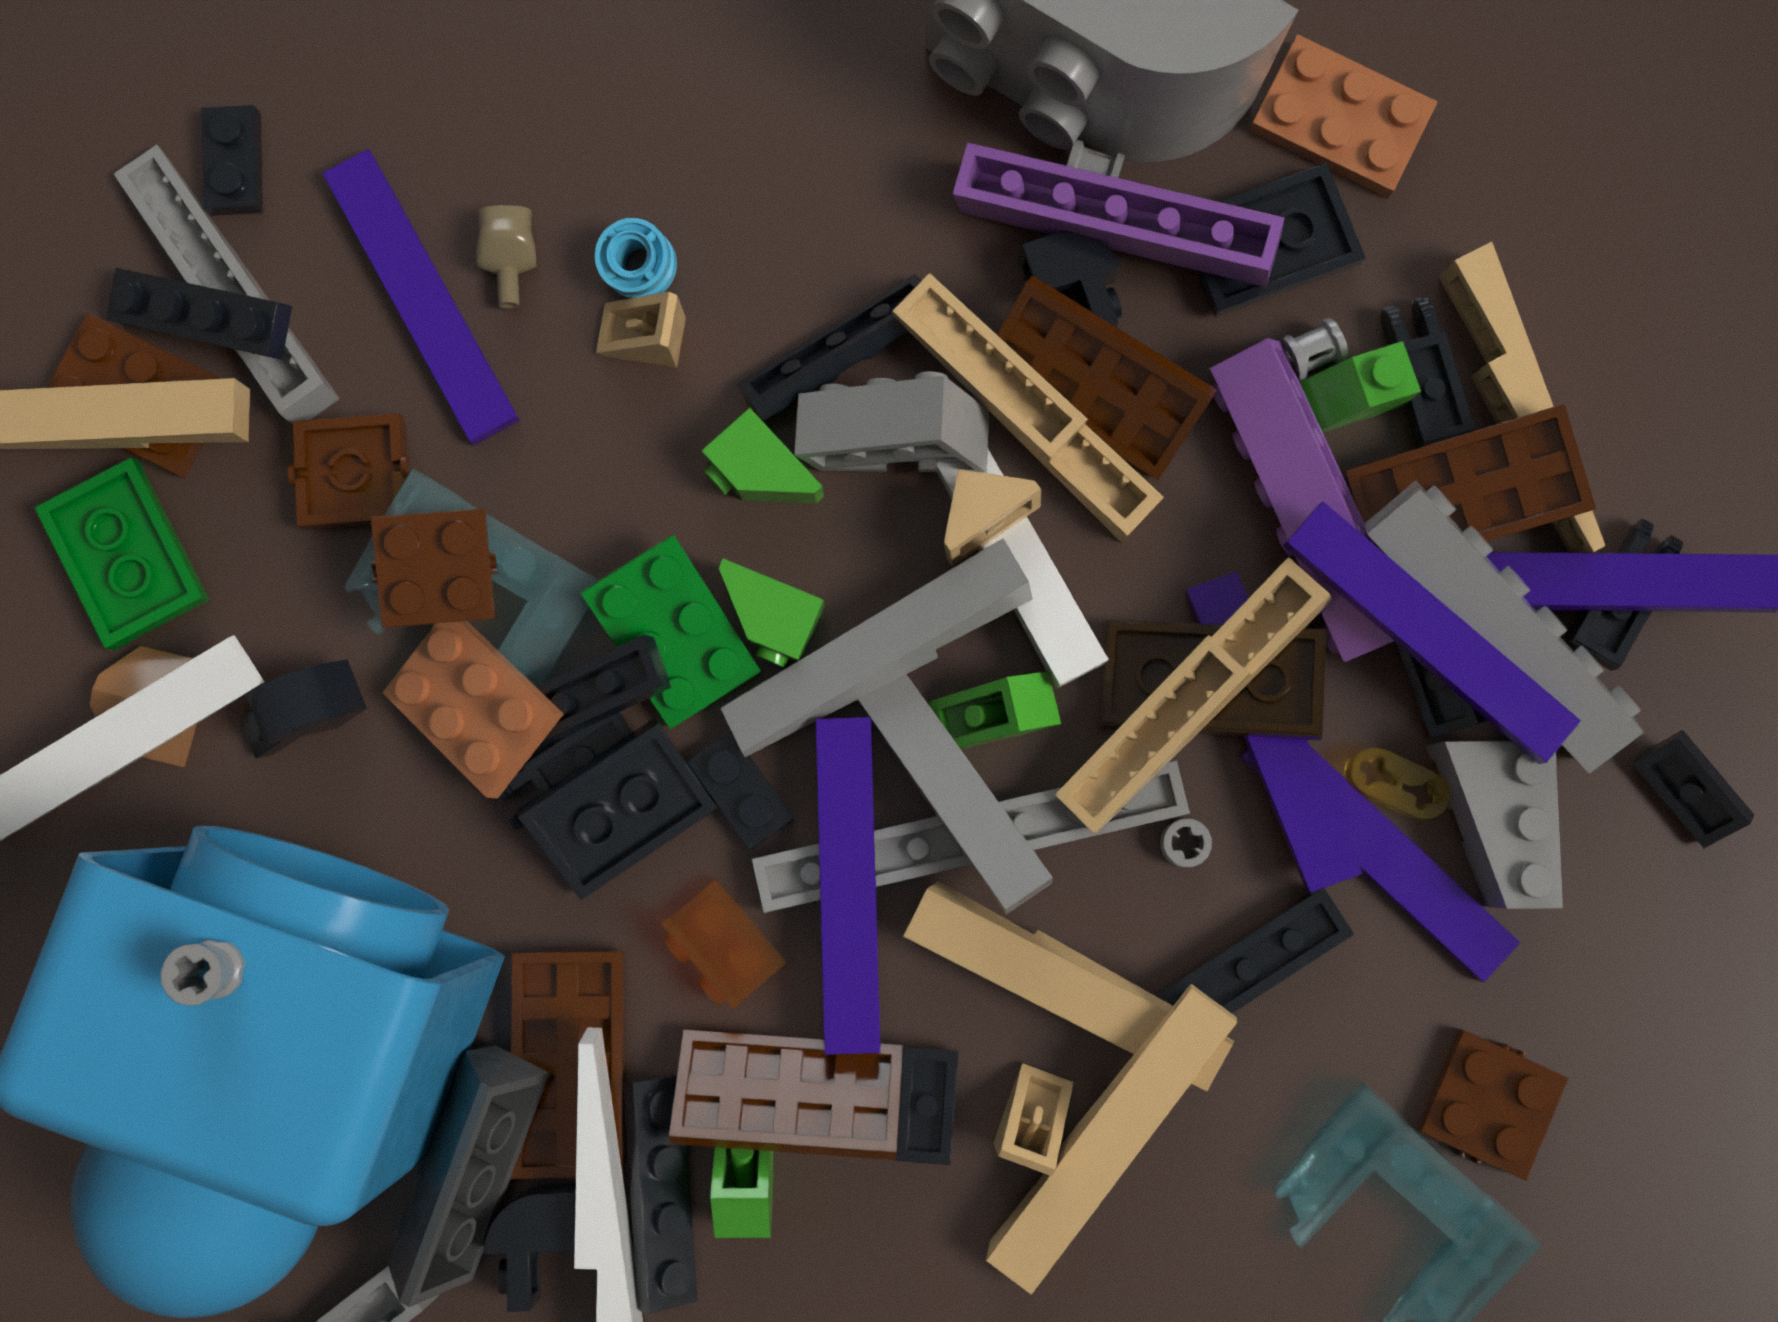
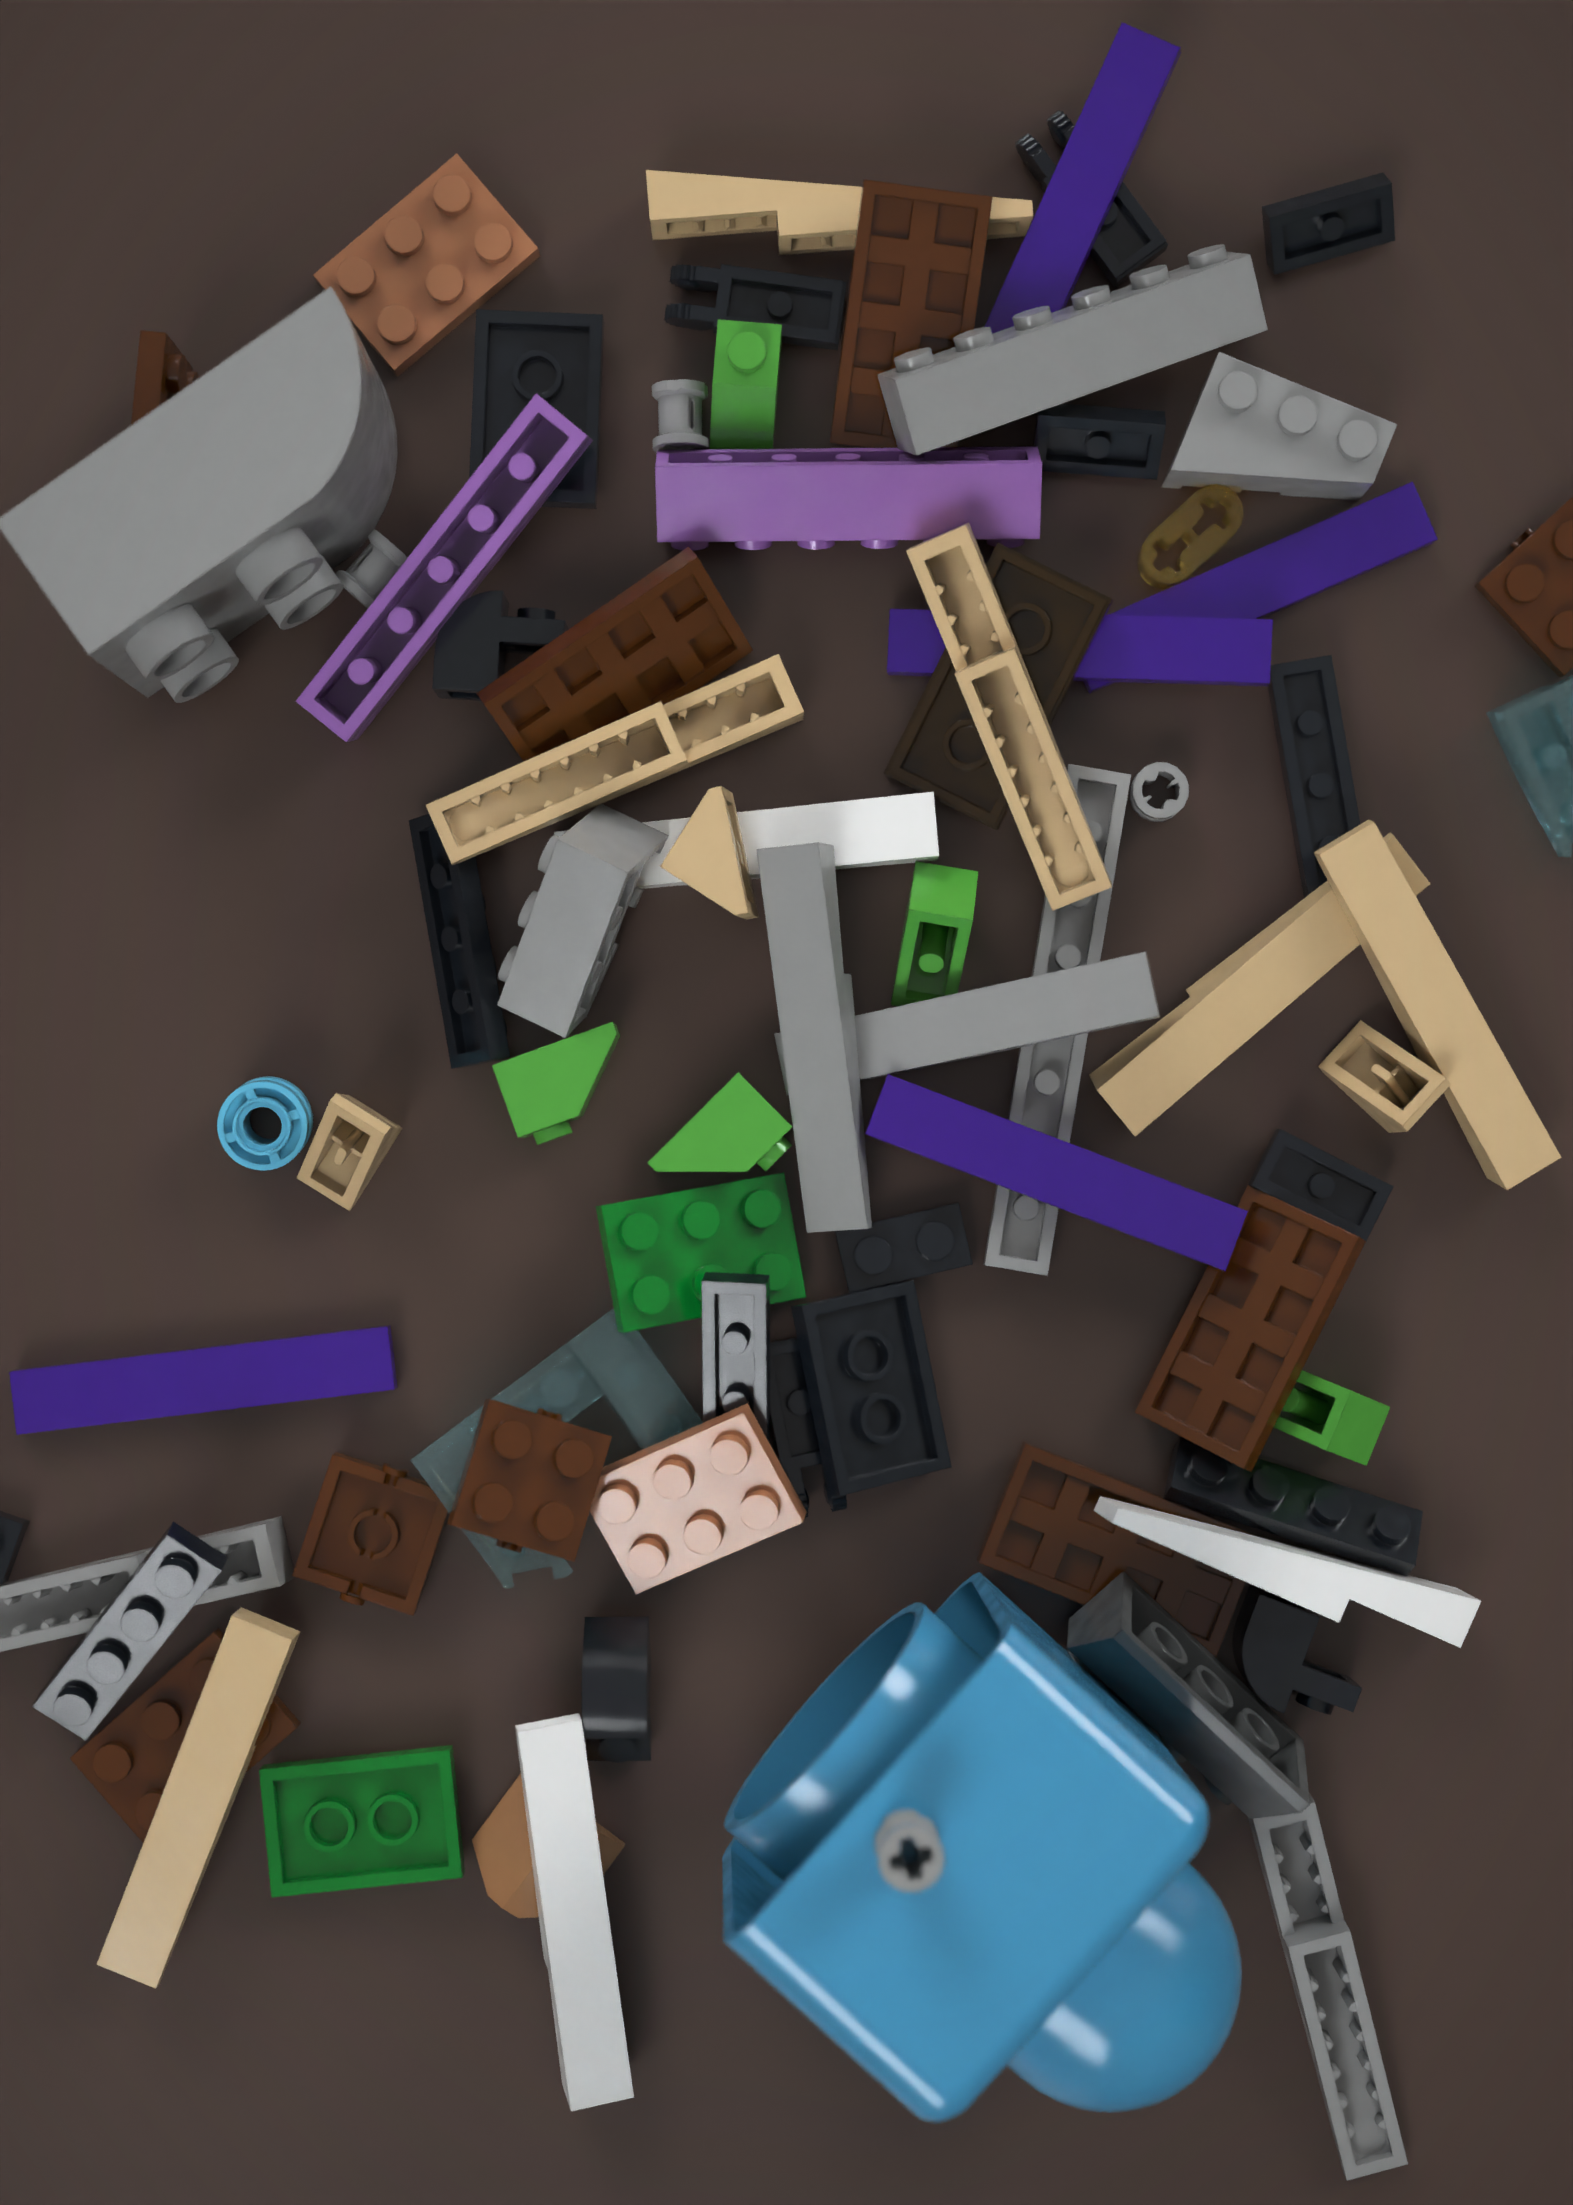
camera: 65 degrees left, 5 degrees up
(506, 248) = (190, 1263): dark tan piece -> none
(722, 945) = (1062, 1334): clear orange bracket -> none
(1432, 633) = (1050, 434): dark purple tile -> none

